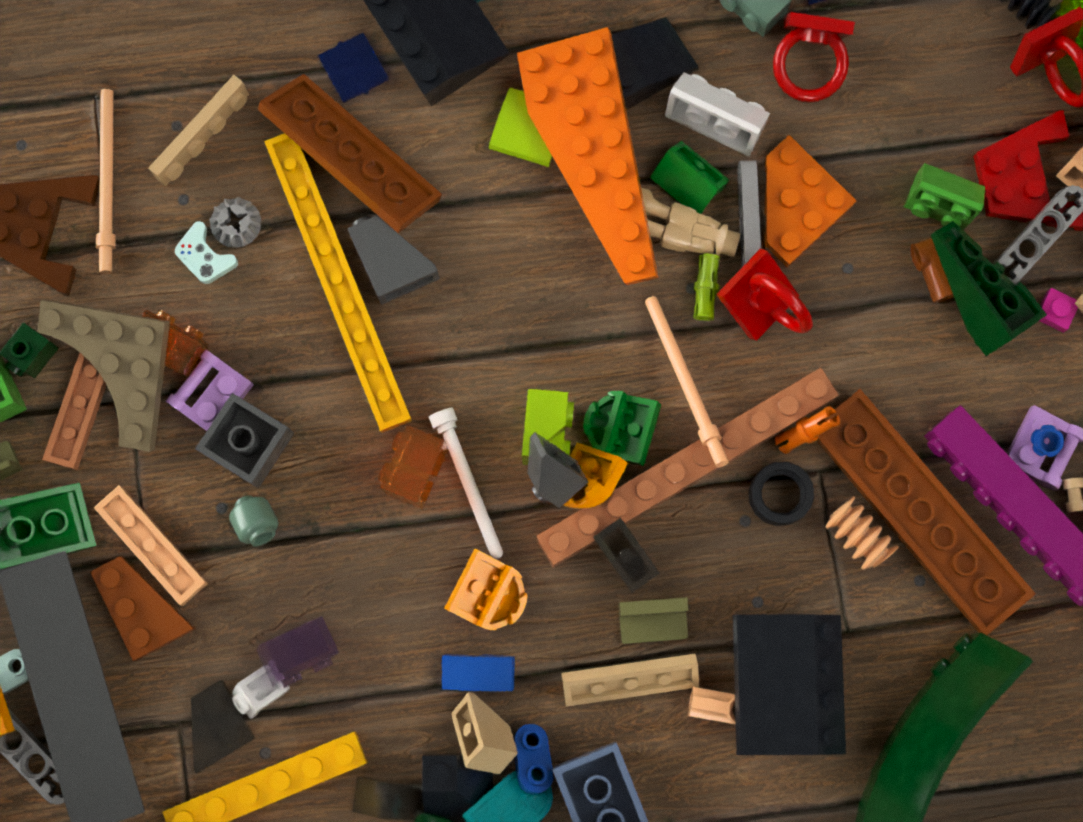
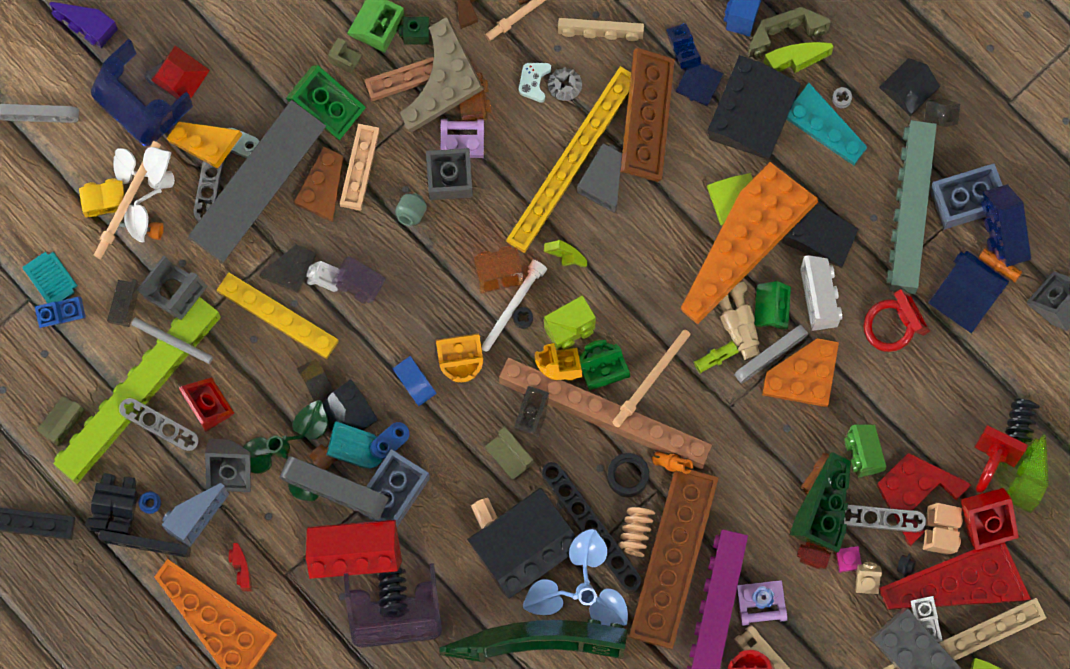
camera: 55 degrees right, 5 degrees down
(293, 53) = (683, 46): none -> clear blue slope
(453, 369) = (567, 252): none -> lime slope
(483, 736) = (383, 405): tan slope -> none
(484, 474) = (522, 324): none -> black bush
(553, 472) = (547, 340): dark grey slope -> none
(630, 680) = (467, 462): tan plate -> none
(761, 296) = (730, 388): red tile -> none
(834, 585) = (587, 517): none -> black beam
(932, 635) = (585, 550): none -> light blue plant
(1030, 346) = (813, 555): none -> clear red brick

